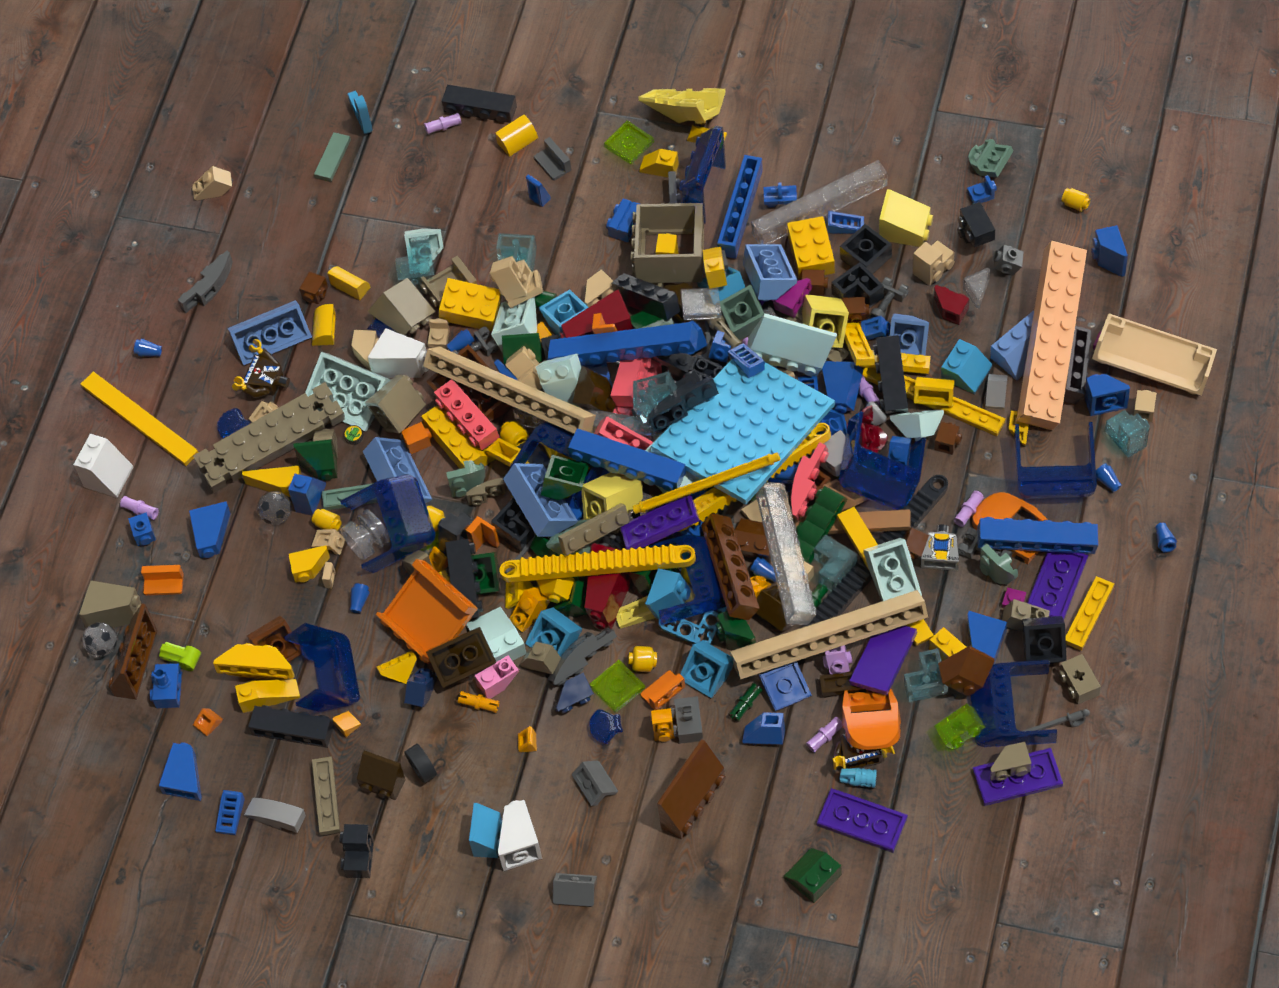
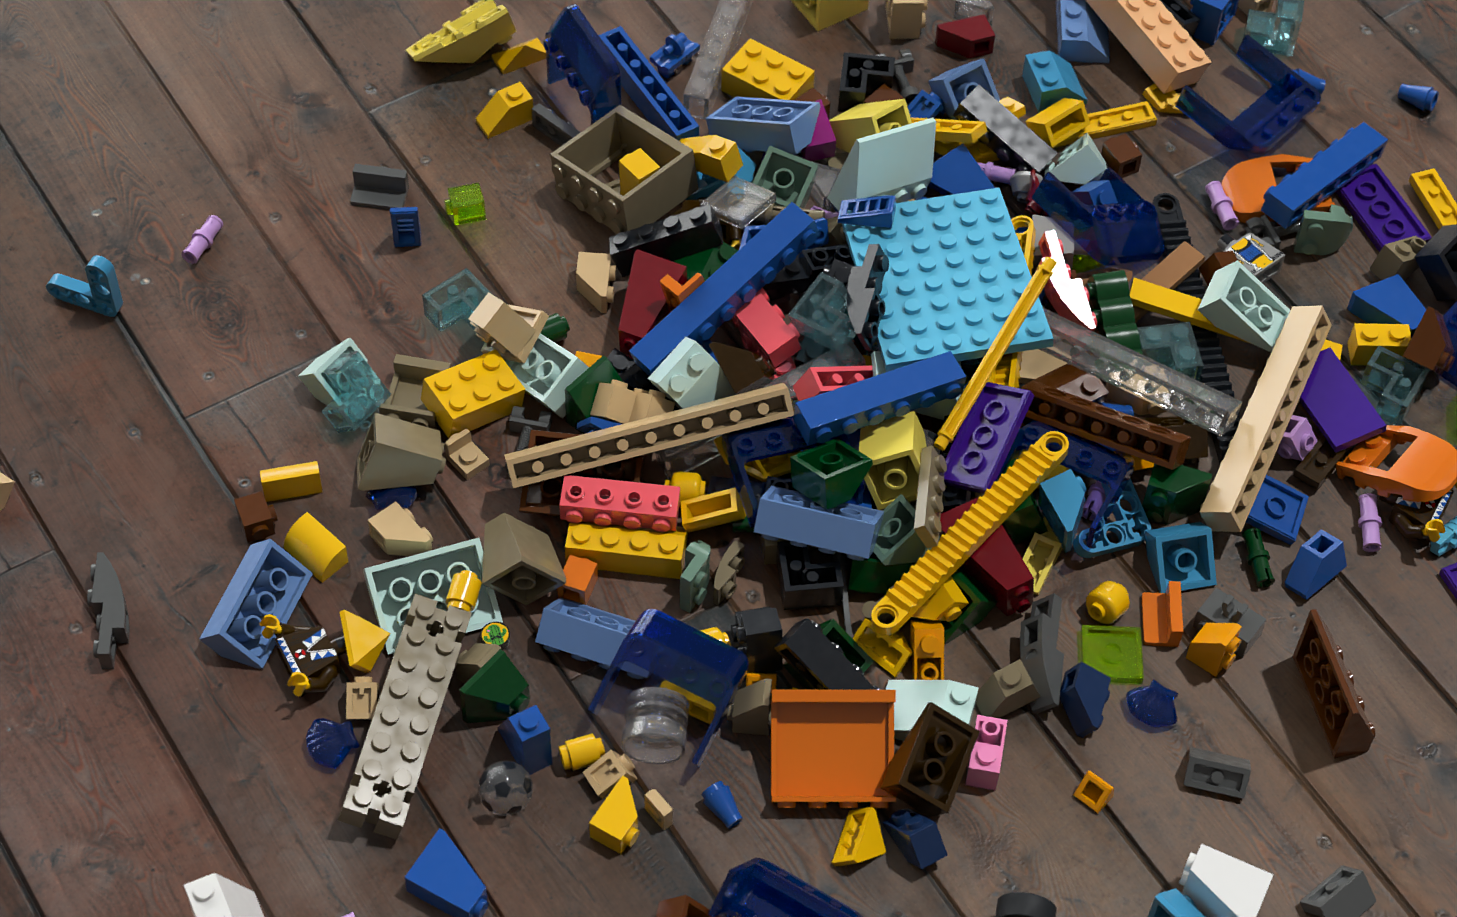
camera: 55 degrees left, 5 degrees down
(139, 418) = (197, 831): yellow tile -> none
(146, 348) = (113, 744): blue cone -> none
(271, 479) = (466, 758): yellow slope -> none
(292, 385) = (362, 640): none -> yellow slope
(332, 157) = (103, 366): sand green tile -> none
(332, 497) = (573, 704): sand green tile -> none
(351, 400) = (464, 591): none -> yellow brick
(397, 355) = (458, 504): white slope -> none
(461, 340) = (503, 439): blue cone -> none
(478, 701) = (994, 797): light orange pin -> none
(479, 103) = (223, 189): black brick -> none
(482, 531) = (791, 607): orange panel -> none
(516, 135) = (307, 192): yellow brick -> none
(555, 630) = (984, 651): dark azure slope -> none
(561, 310) = (592, 323): dark azure slope -> none
(583, 200) = (465, 204): none -> clear neon green brick
(621, 224) = (537, 191): blue brick -> none
(629, 142) = (442, 116): clear neon green tile -> none
(844, 218) = (767, 36): blue slope -> none
(866, 247) = (826, 40): black brick -> none
(996, 391) = (1107, 82): light grey slope -> none
(1013, 594) = (1363, 254): magenta plate -> none

